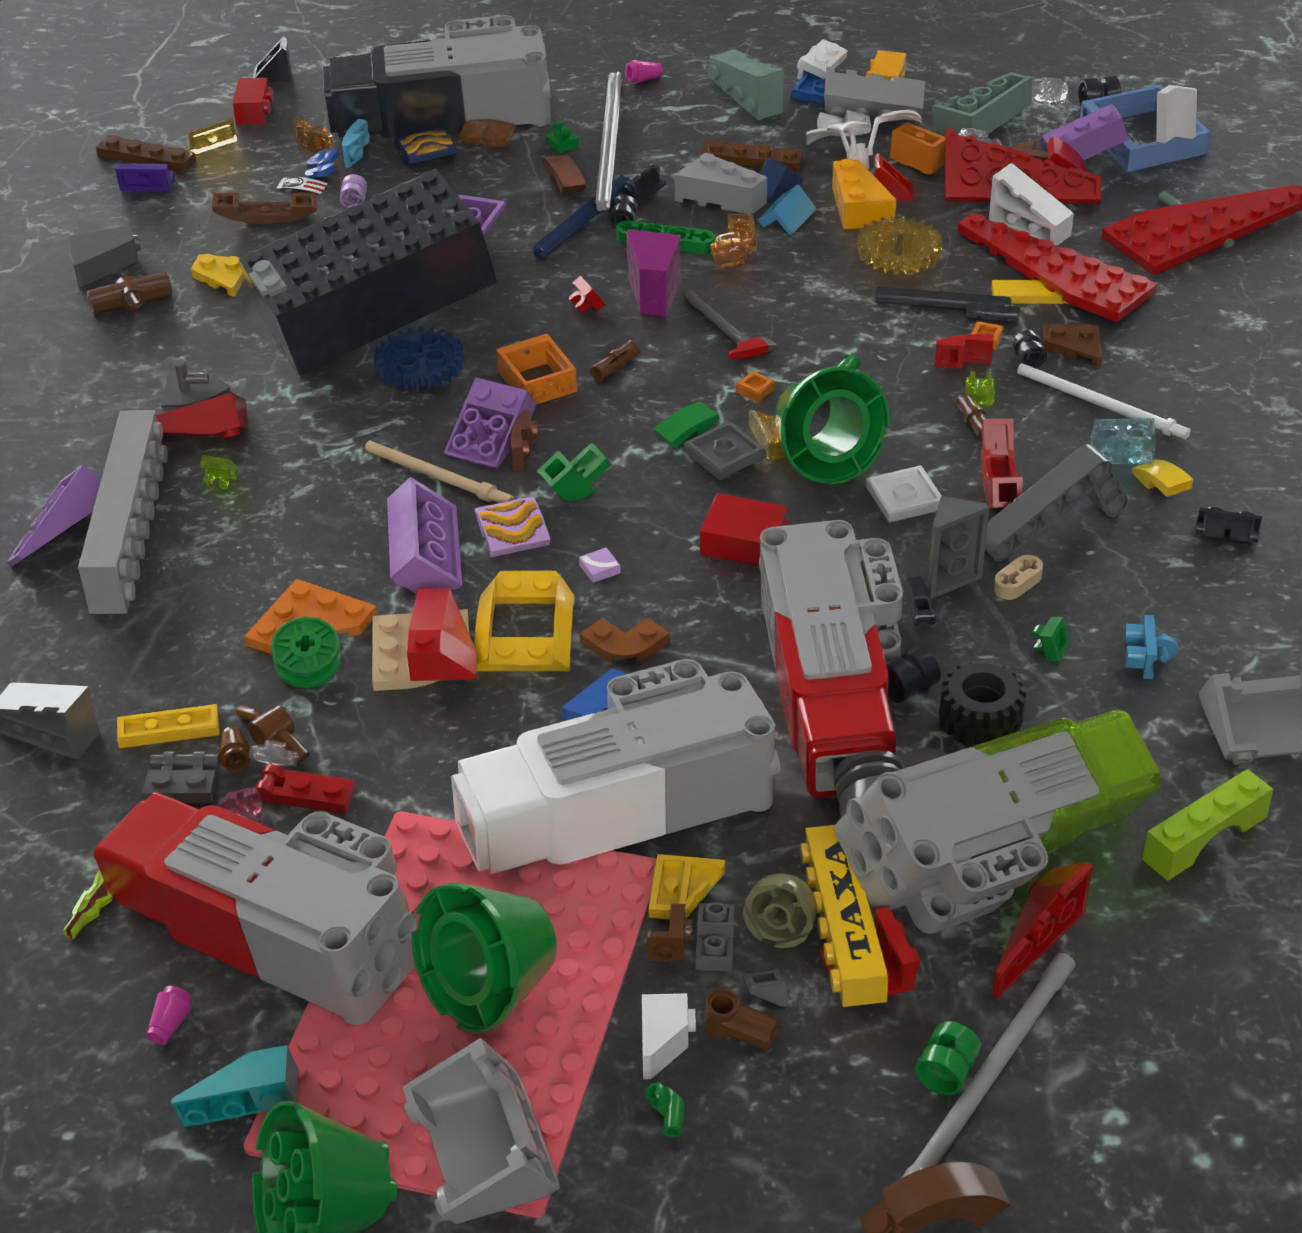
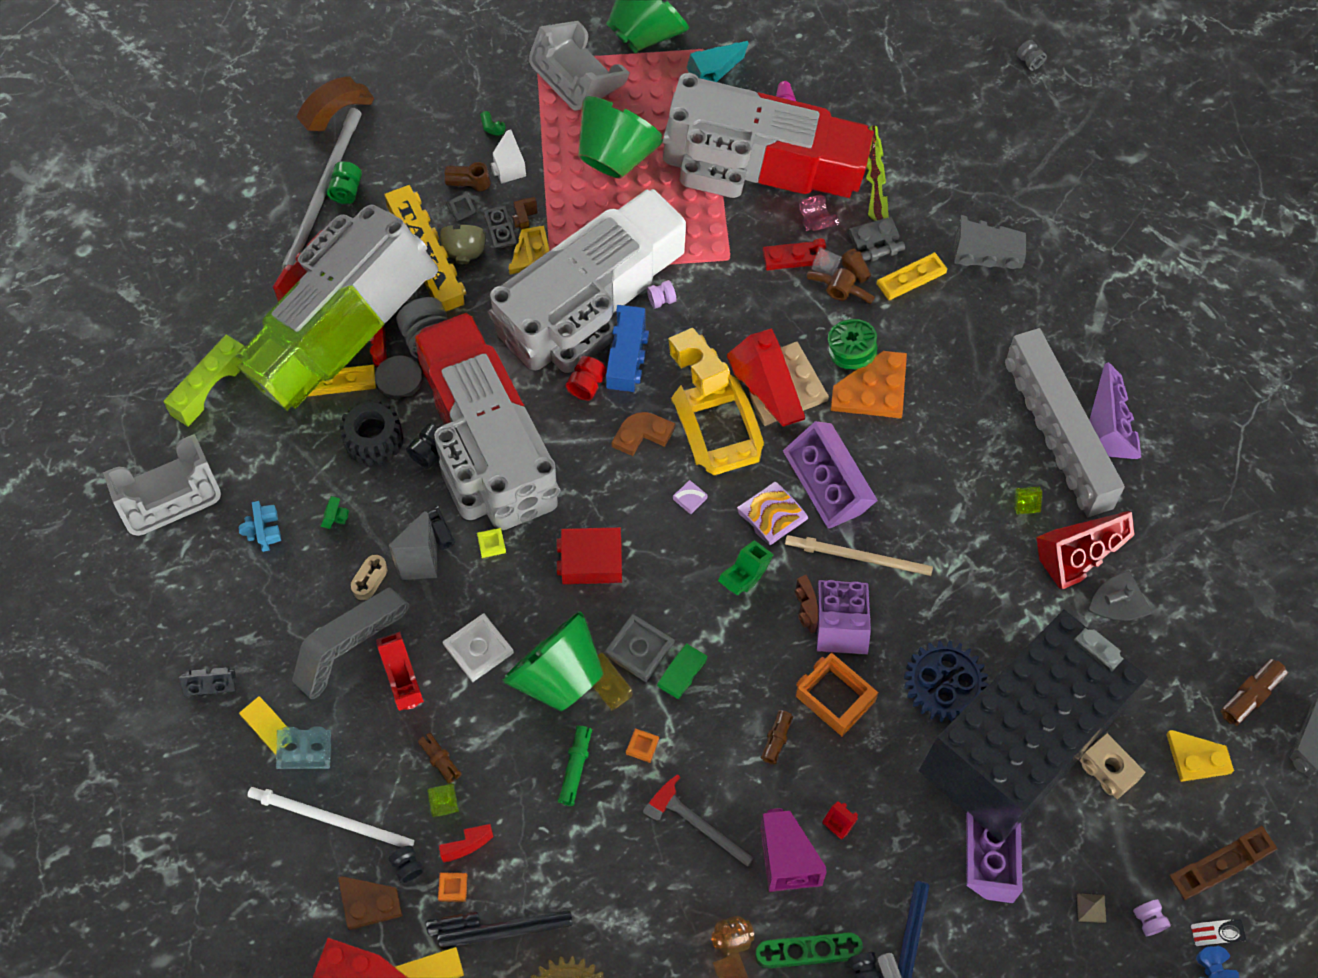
camera: 160 degrees right, 20 degrees up
(519, 696) = (707, 370): none -> yellow arch

